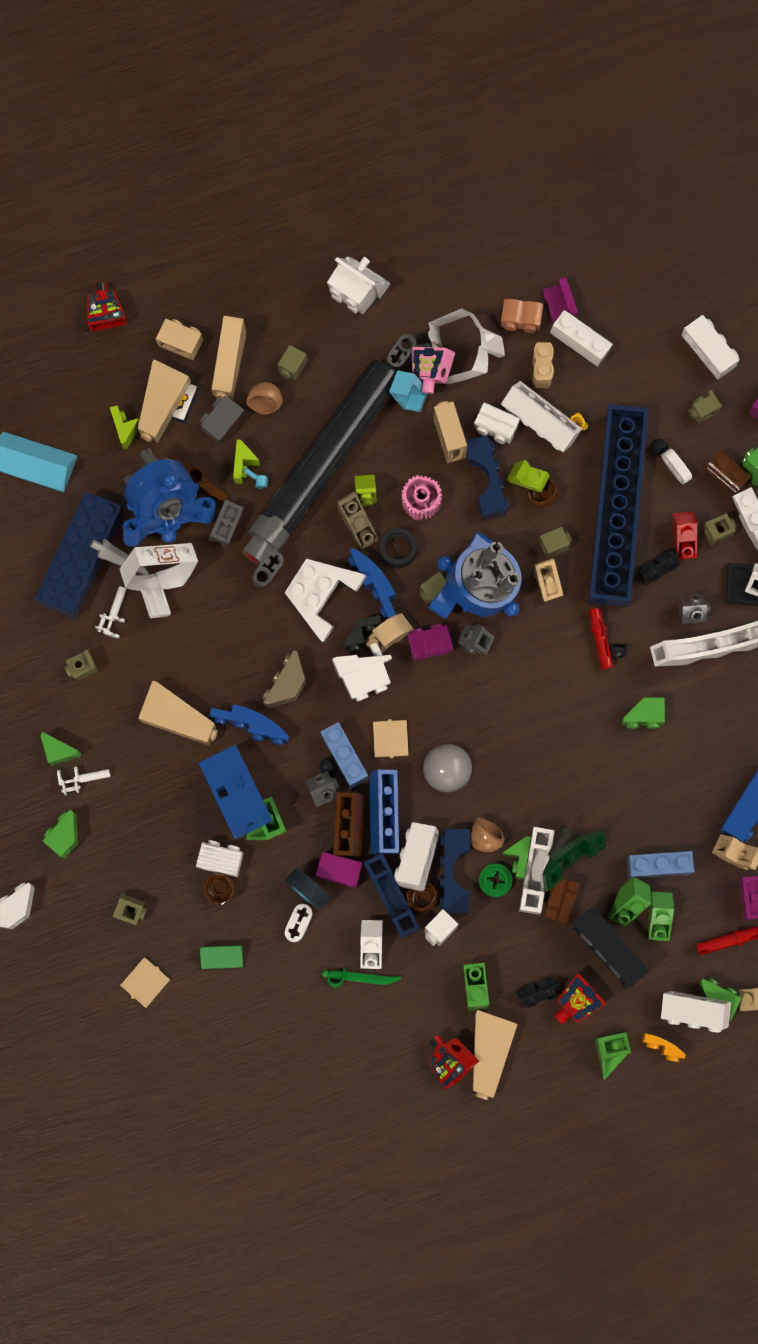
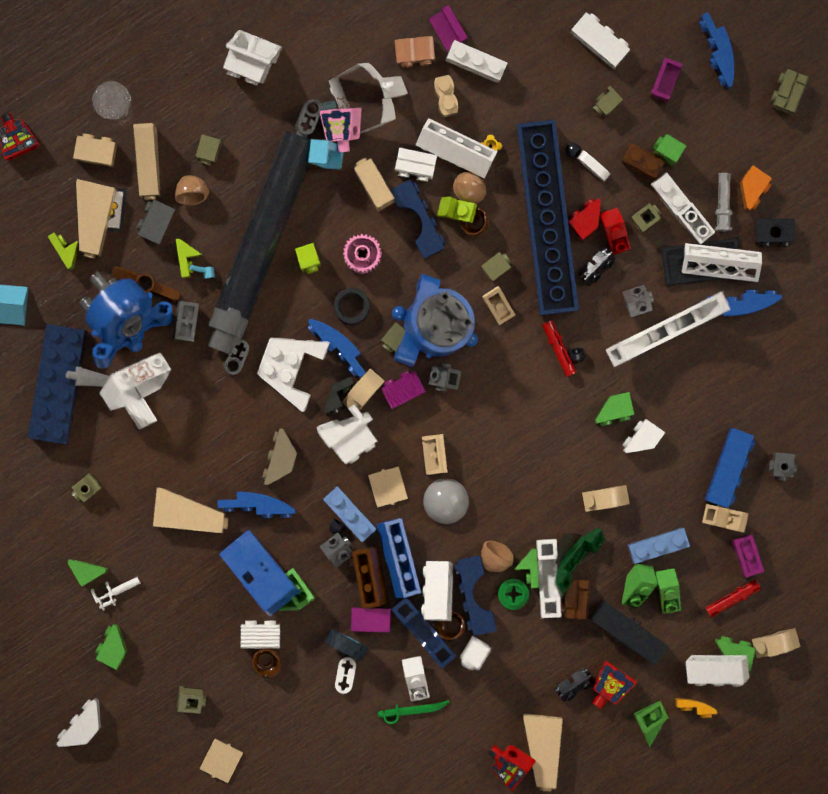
camera: 15 degrees left, 10 degrees up
(113, 614) = (103, 430): white piece -> none
(208, 296) = (111, 100): none -> clear tile
(221, 957) = (284, 722): green slope -> none
(356, 520) = (308, 291): dark tan slope -> none
(447, 716) = (434, 454): none -> tan hinge
(476, 987) = (518, 694): bright green slope -> none
(546, 458) = (469, 187): none -> medium nougat hat
(616, 801) = (605, 498): none -> tan brick
(657, 518) = (587, 220): none -> red slope
(670, 751) = (645, 437): none -> white slope

